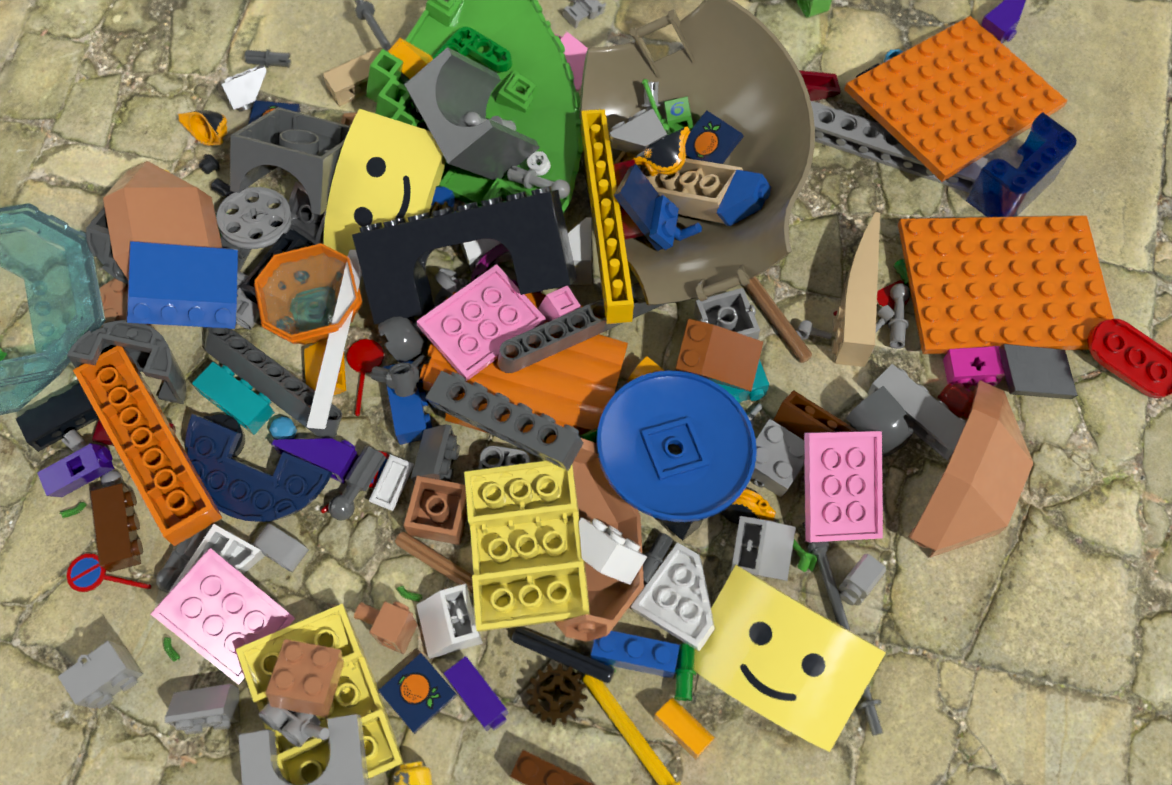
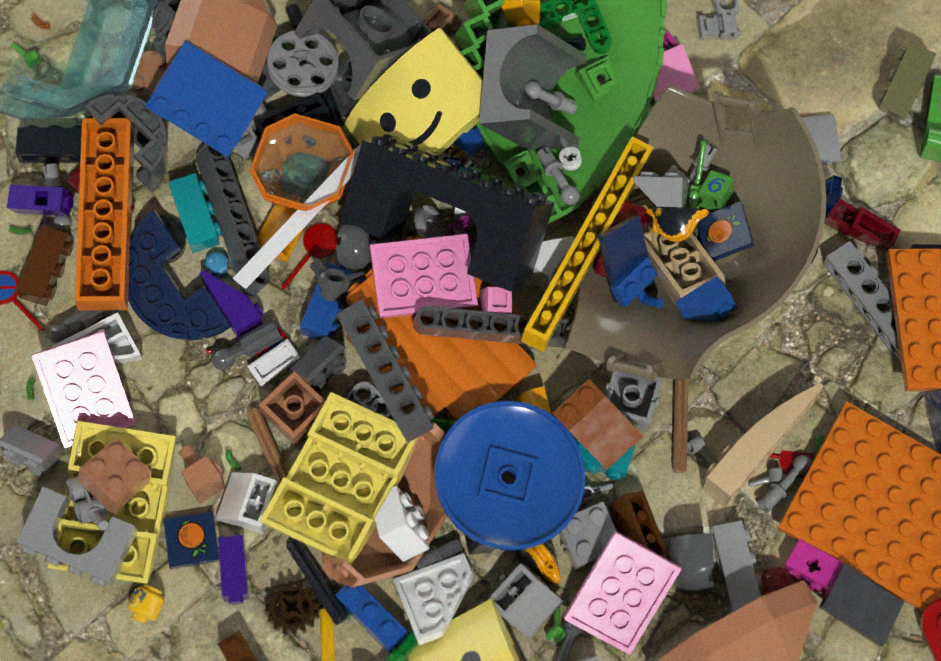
camera: 30 degrees right, 5 degrees up
(280, 547) = (157, 361): light grey beam -> none

